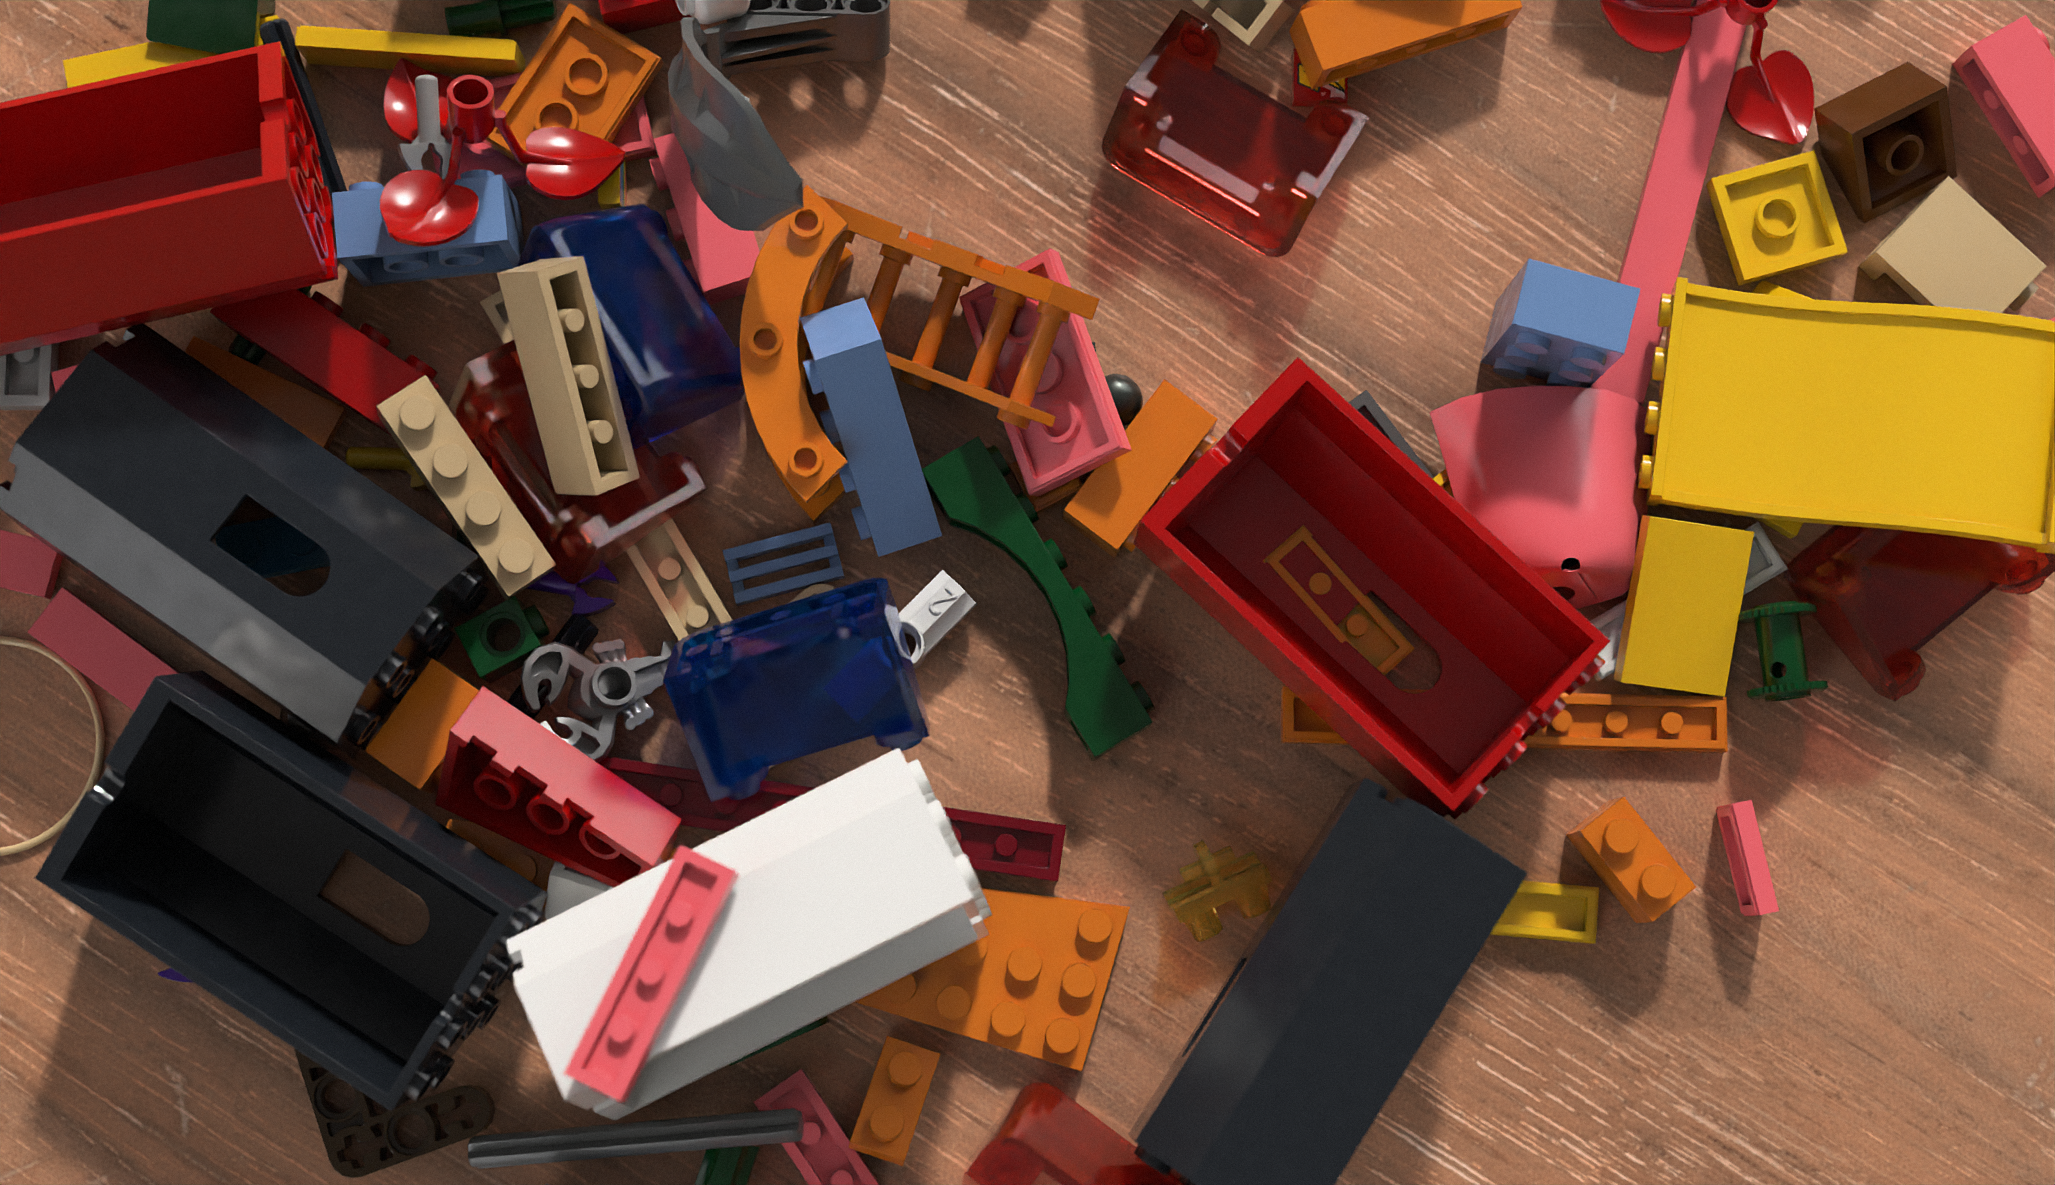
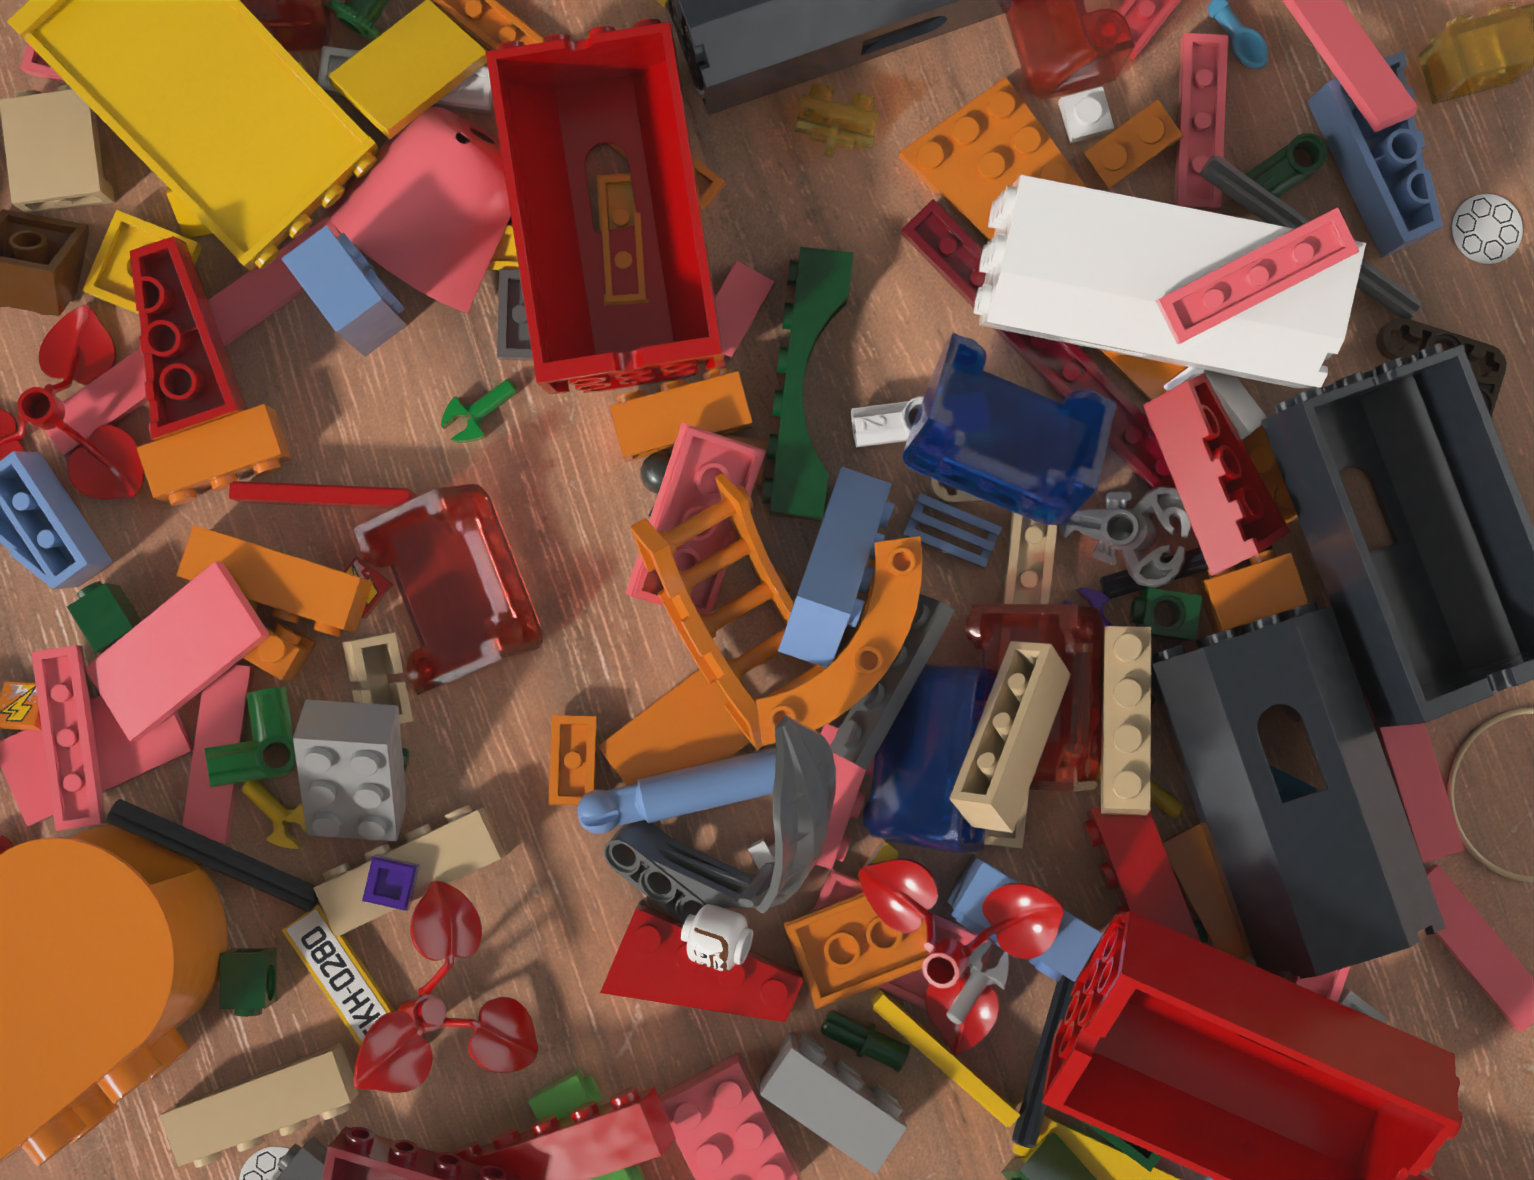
camera: 140 degrees left, 5 degrees up
(720, 292) = (874, 714): none -> dark grey plate
(864, 95) = (680, 792): none -> medium blue piece
(902, 150) = (676, 733): none -> orange tile
(968, 1098) = (1086, 115): none -> white plate
(985, 65) = (572, 758): none -> orange plate
(1170, 625) = (739, 304): none -> coral tile
(1344, 328) = (477, 411): none -> green bar
(1424, 132) = (319, 495): none -> red tile
(1557, 92) = (214, 455): none -> orange brick
(1675, 162) = (180, 343): none -> red wedge

